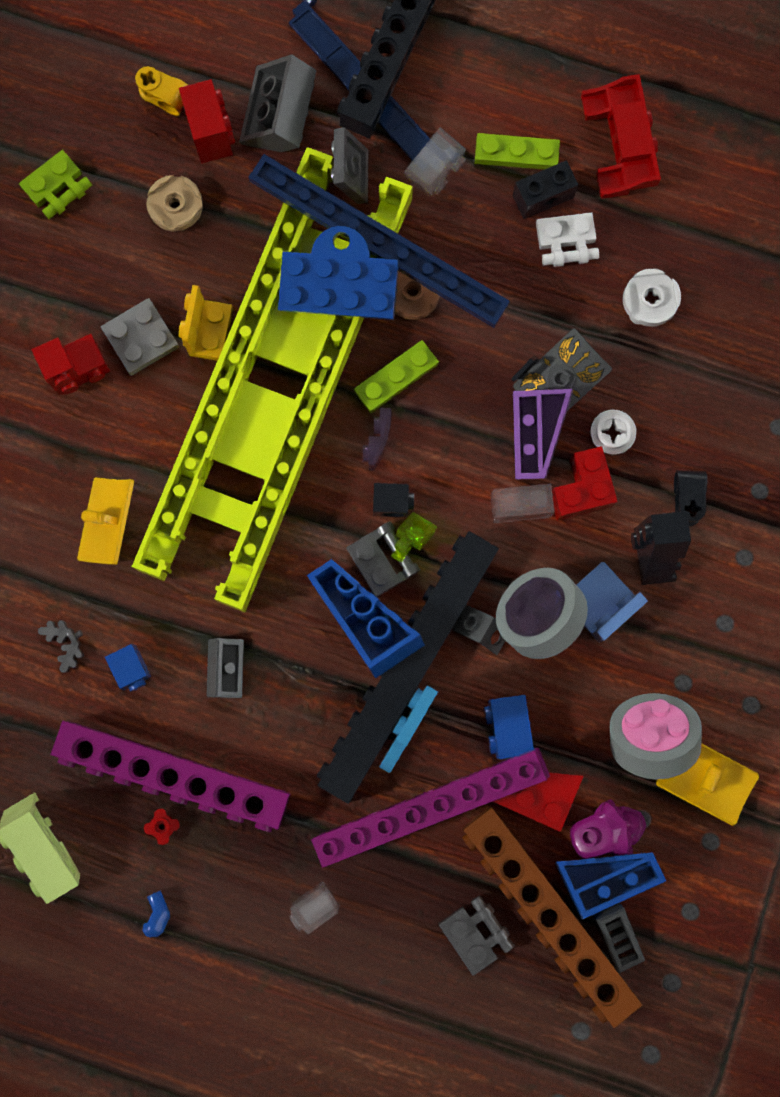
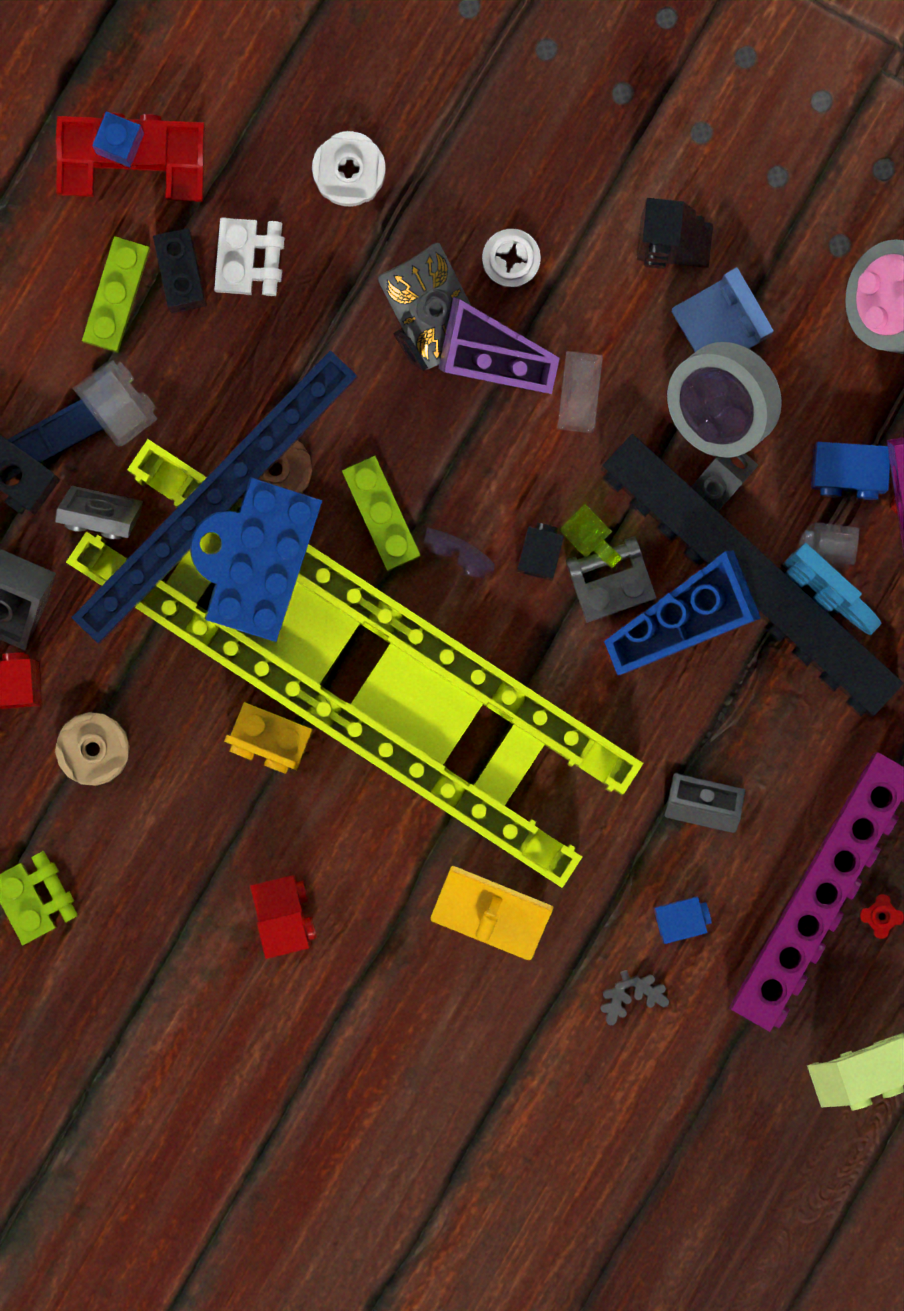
camera: 75 degrees left, 5 degrees up
(139, 336) = (259, 827): light grey plate -> none
(444, 720) = (833, 543): none -> clear brick
(592, 486) = (579, 300): red brick -> none
(633, 115) = (118, 139): none -> blue brick
(690, 491) = (606, 180): black piece -> none

